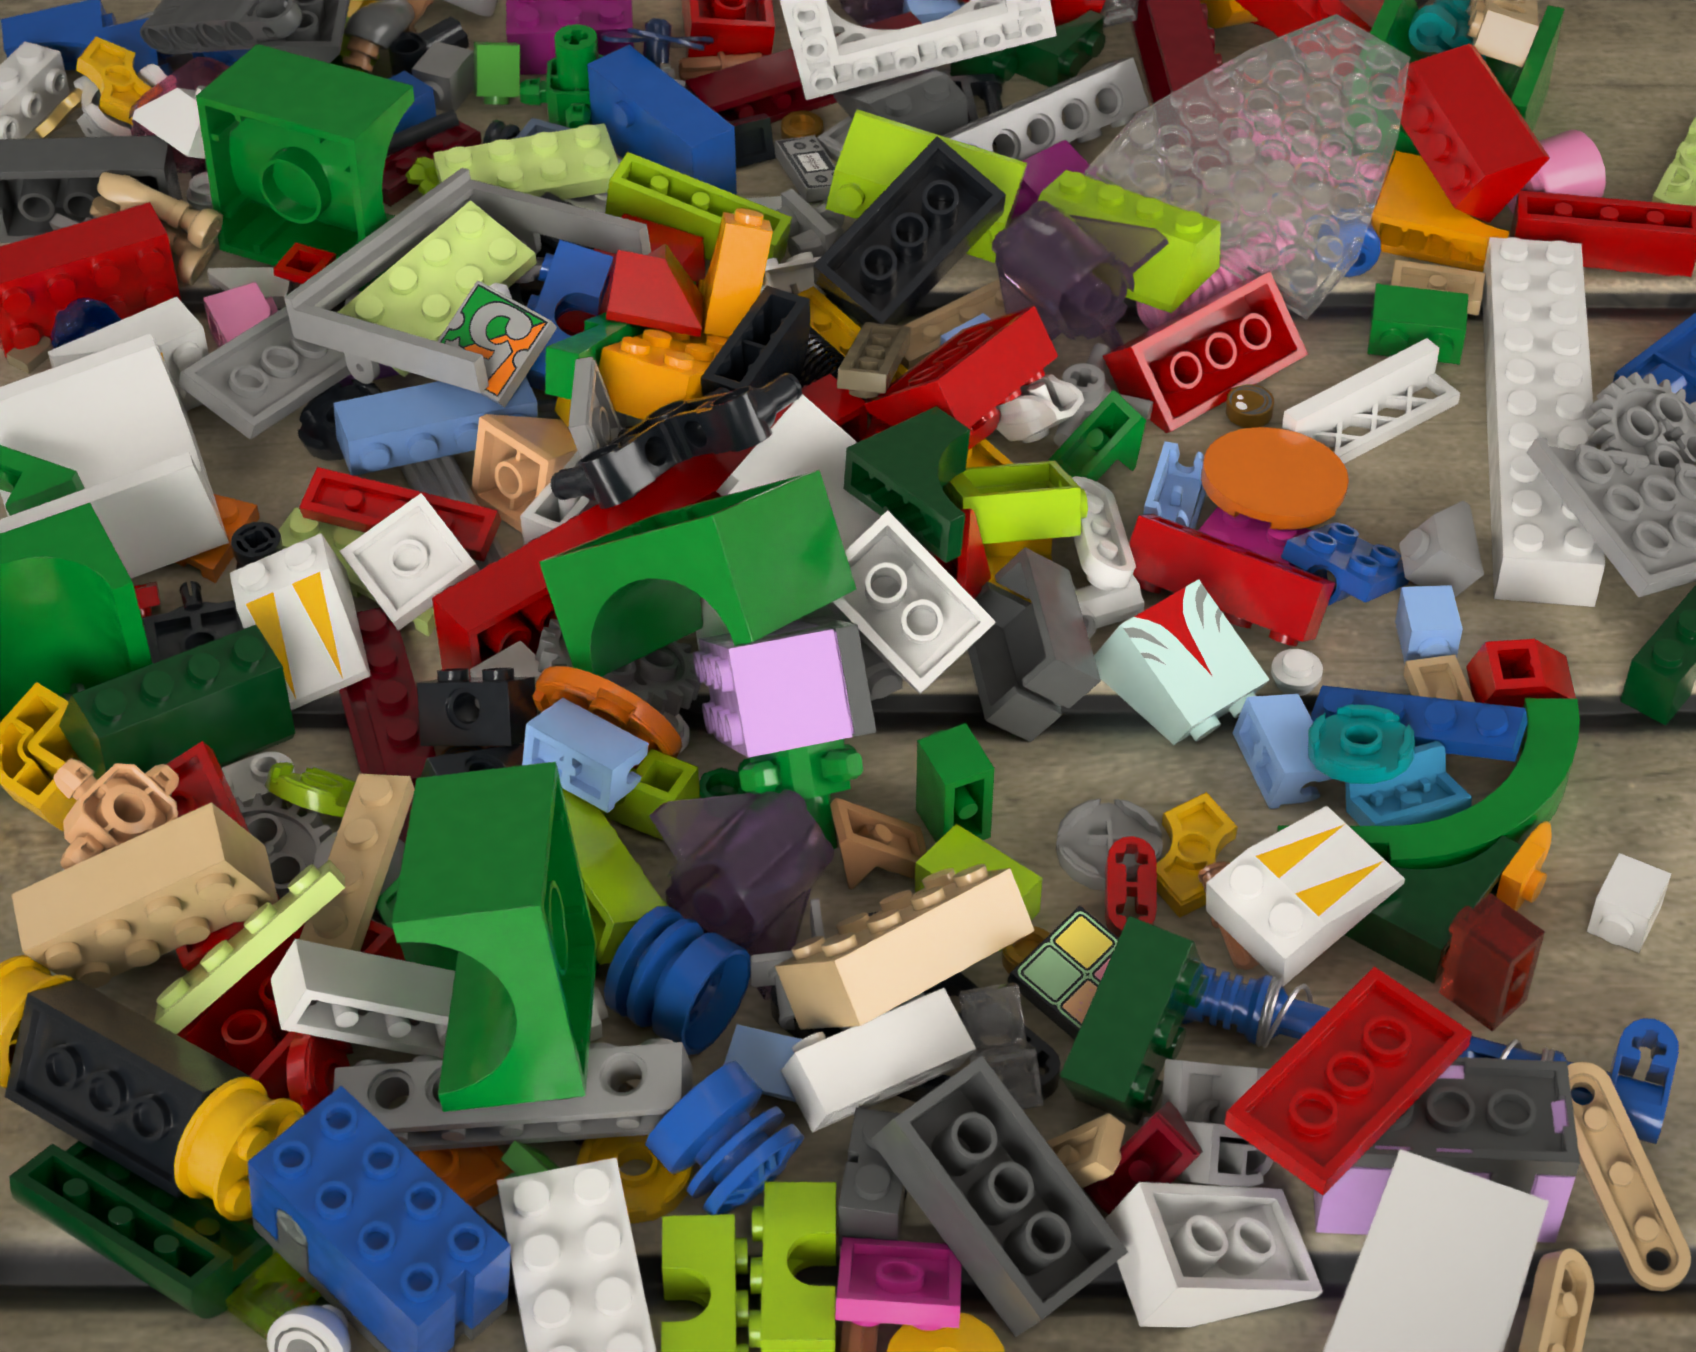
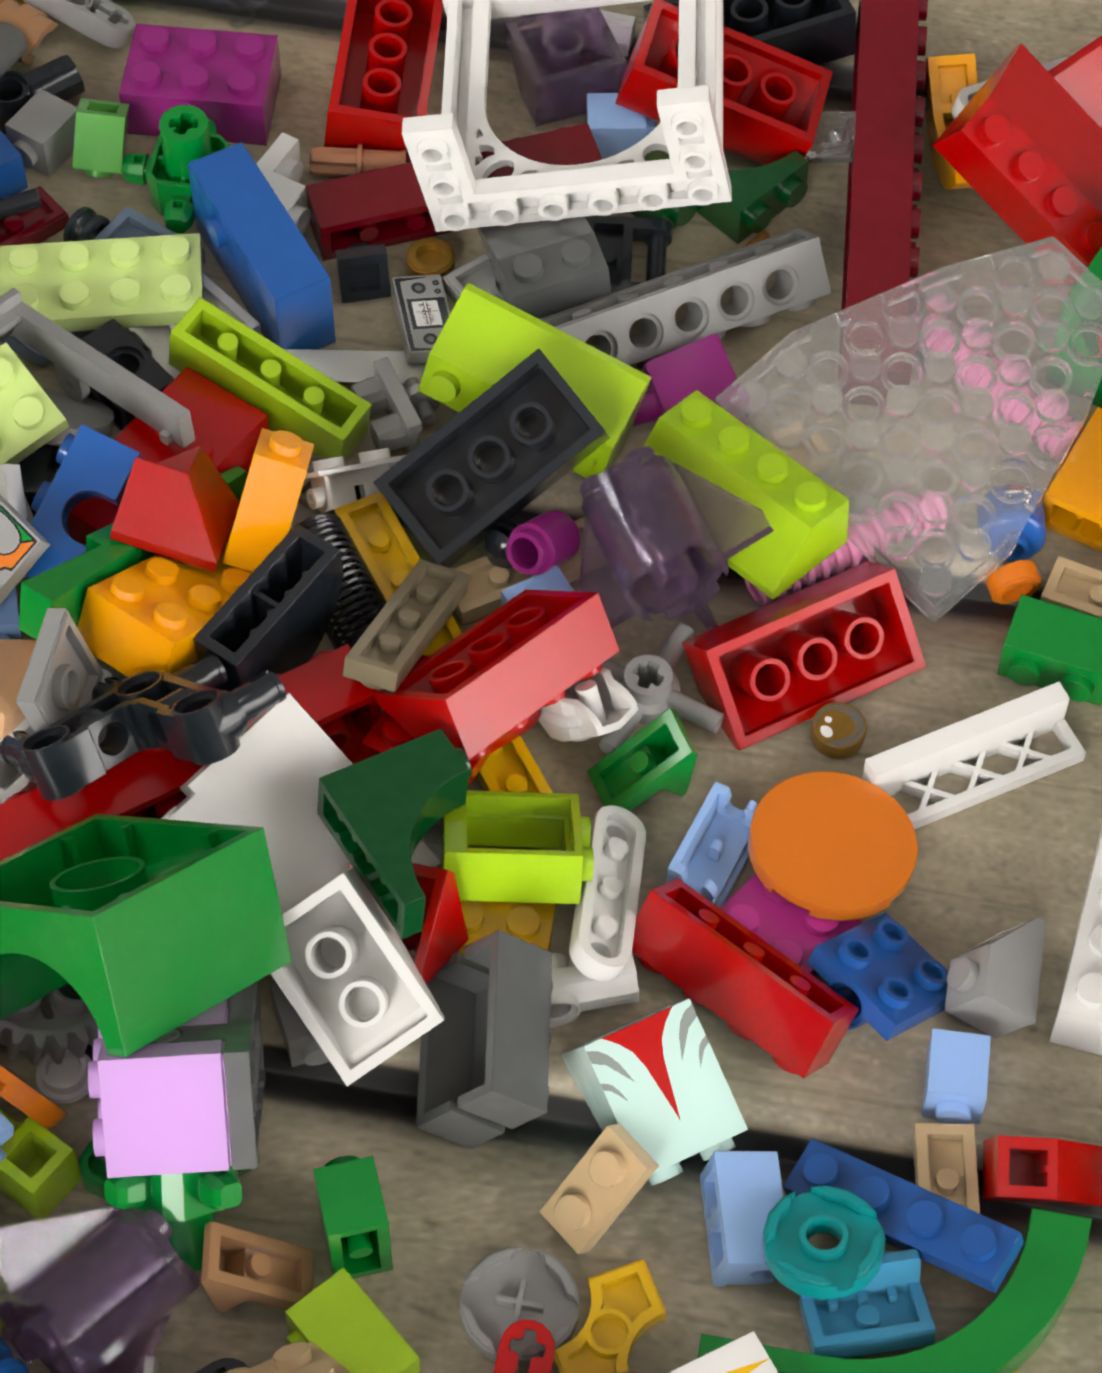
camera: 10 degrees right, 10 degrees up
(657, 40) = (277, 131): dark blue piece -> none
(933, 306) = (496, 543): none -> black hinge
(969, 293) = (543, 543): none -> magenta brick
(1156, 740) = (598, 1188): none -> tan plate
(1296, 671) = (791, 1108): white plate -> none
(1360, 283) = (1012, 580): none -> orange tile

